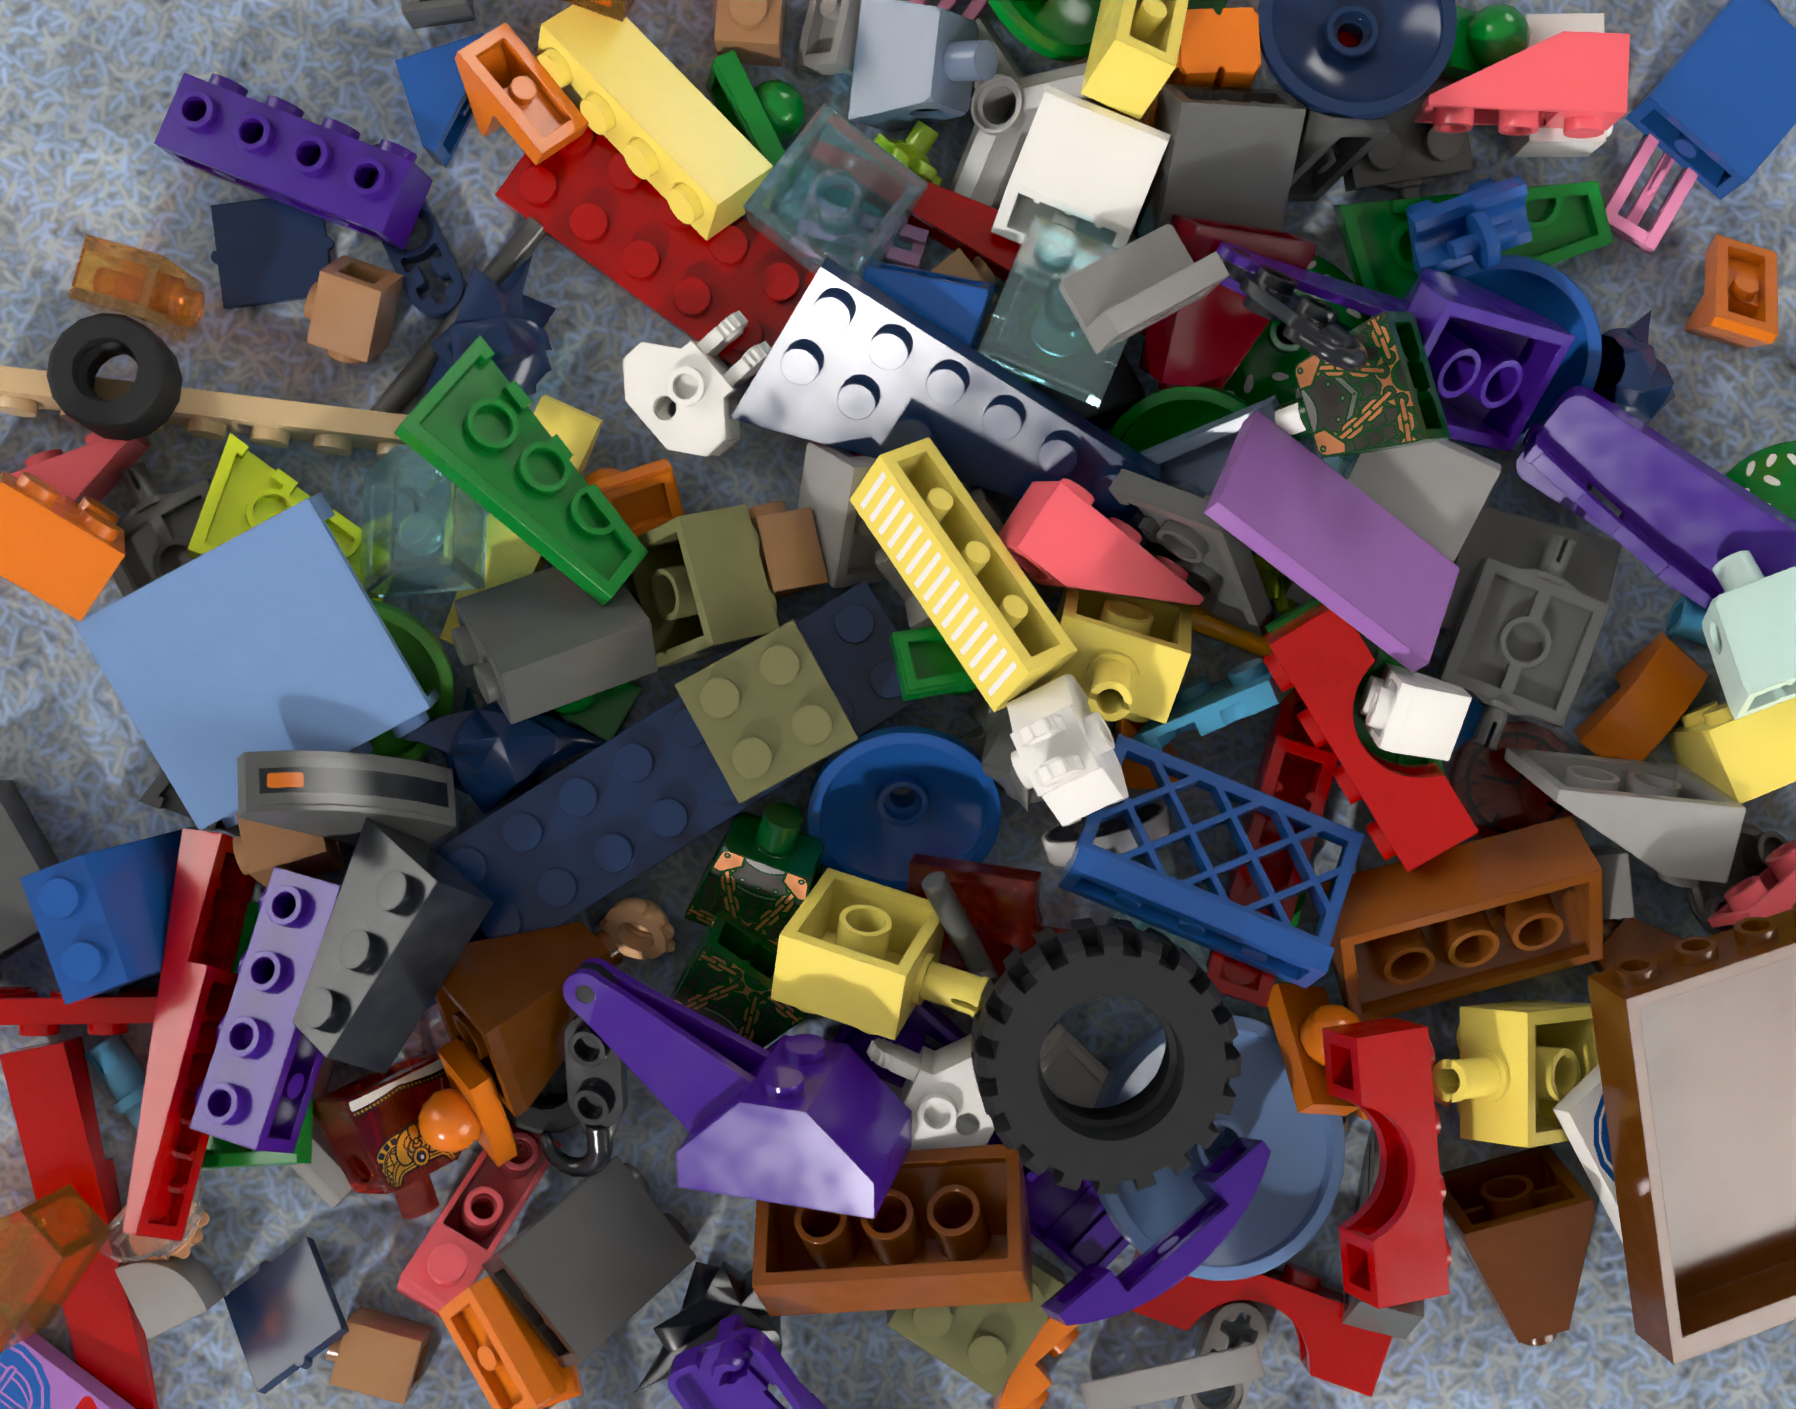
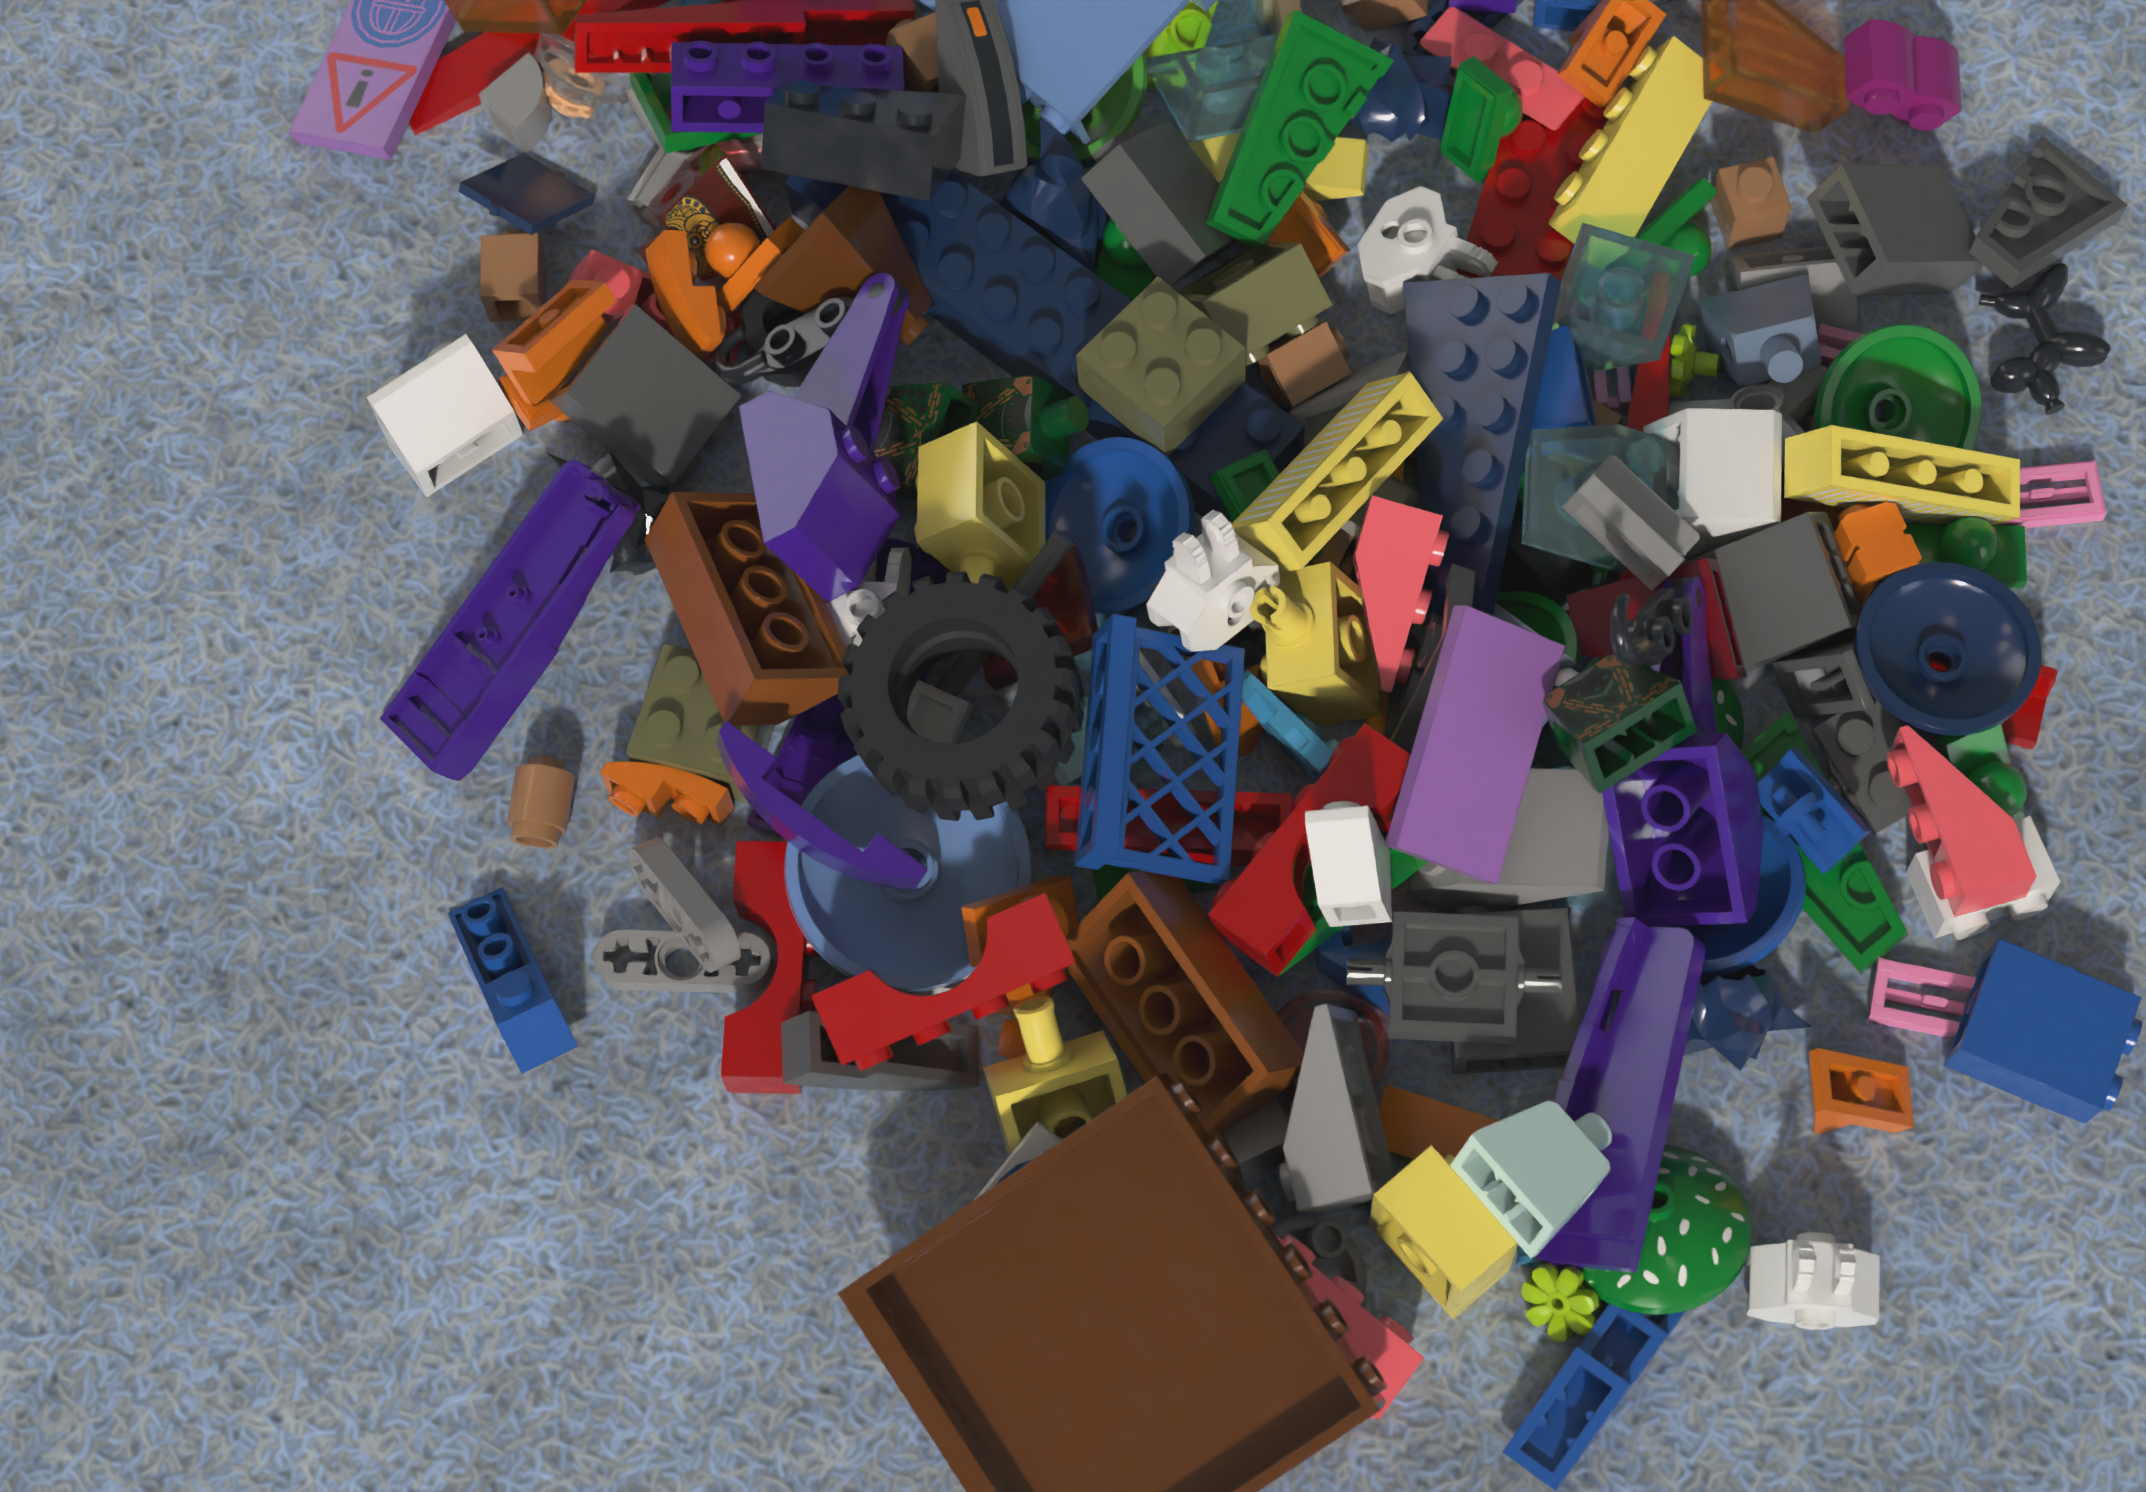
camera: 80 degrees right, 20 degrees down
(496, 220) = (1542, 91): none -> coral piece
(512, 1184) = (687, 308): none -> orange slope
(560, 267) = (1478, 116): none -> green tile
(639, 928) = (941, 358): light nougat animal -> none
(1524, 1235) = (897, 1169): reddish brown slope -> none

